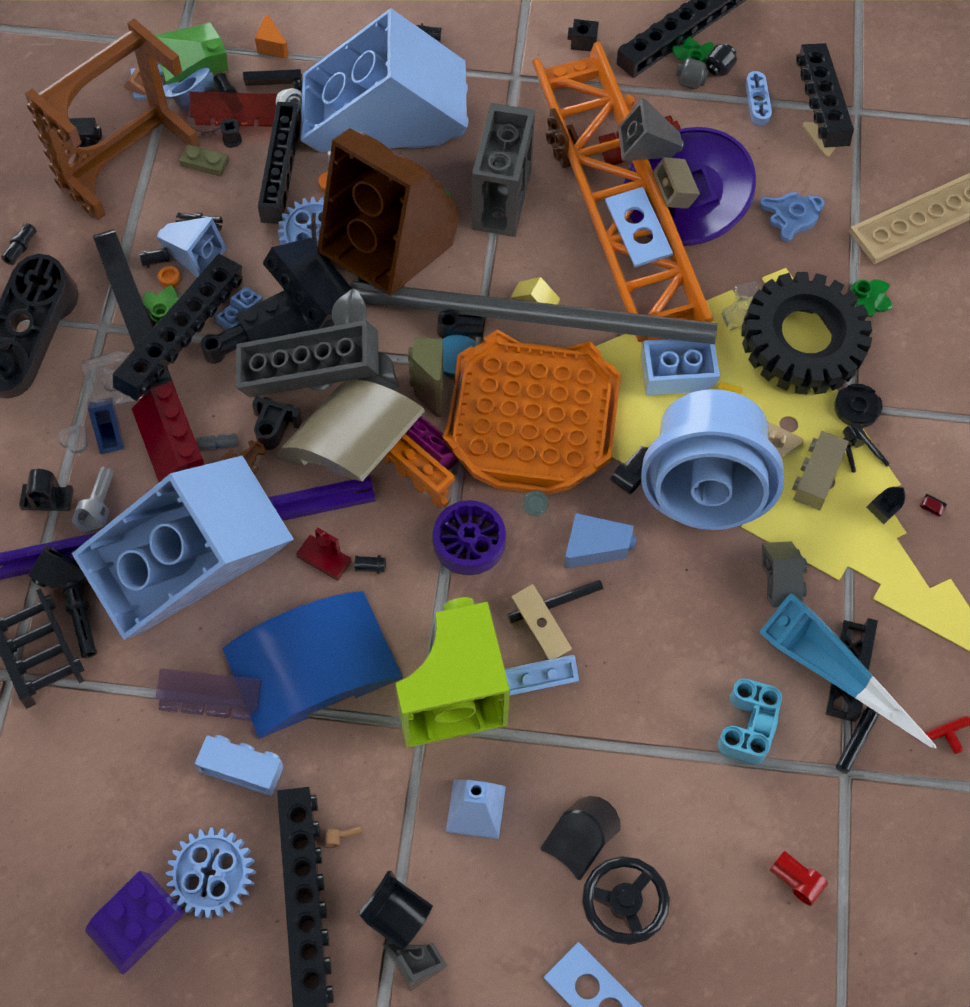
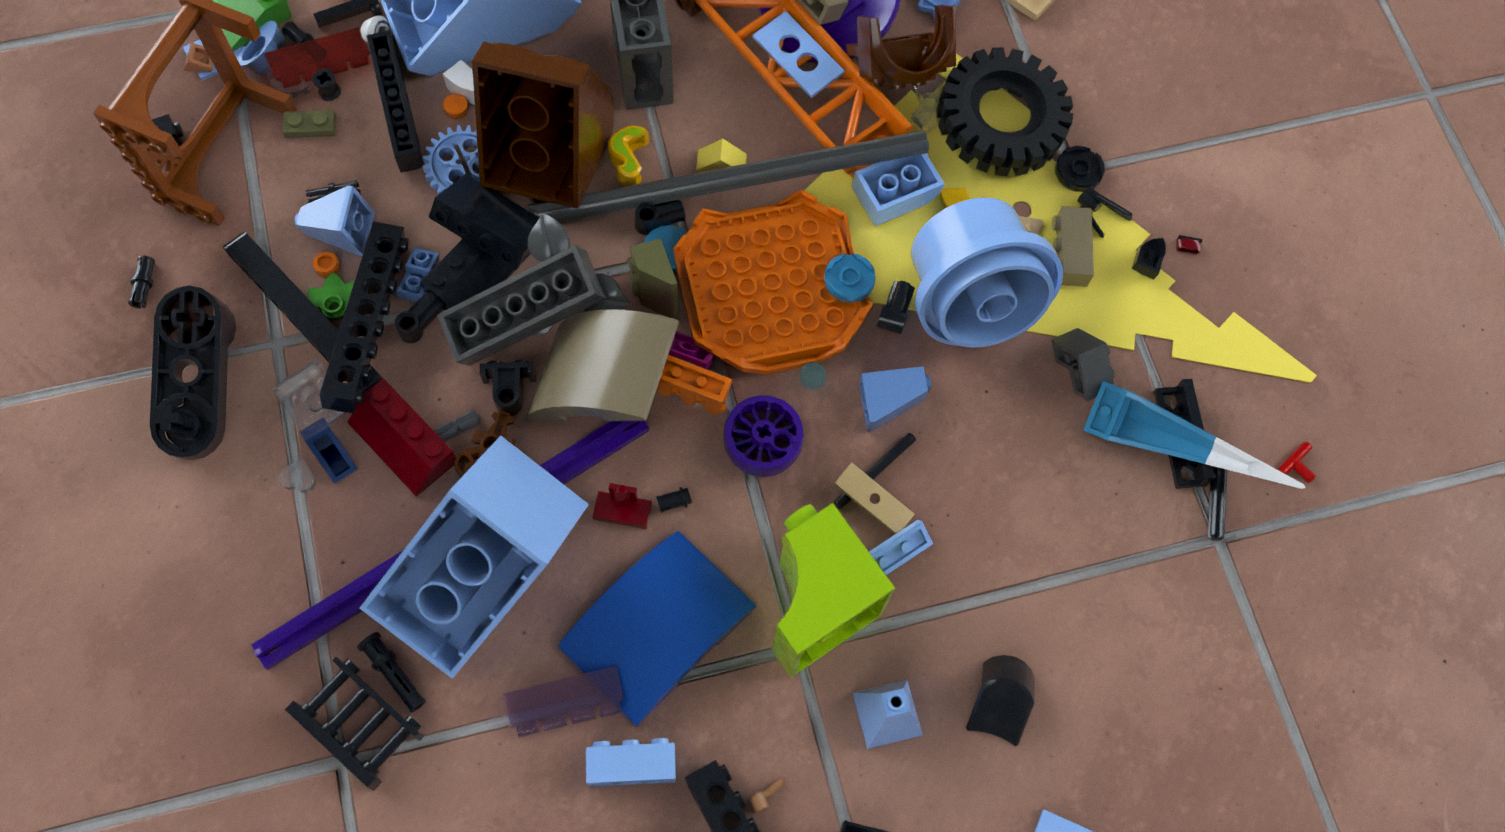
camera: 25 degrees left, 5 degrees up
(45, 493) = (294, 549): black pin -> none
(55, 569) = (342, 628): black slope -> none
(93, 510) = (356, 550): light grey piece -> none
(154, 257) = (300, 248): black pin -> none
(450, 258) = (621, 155): none -> yellow animal
(601, 429) = (849, 278): none -> dark azure tile
(625, 900) = (1076, 751): black piece -> none
(729, 258) = (900, 59): none -> reddish brown piece
(761, 724) = (1124, 520): medium azure beam -> none
(805, 883) = (1230, 663): red piece -> none
(873, 295) = (1047, 51): green plate -> none

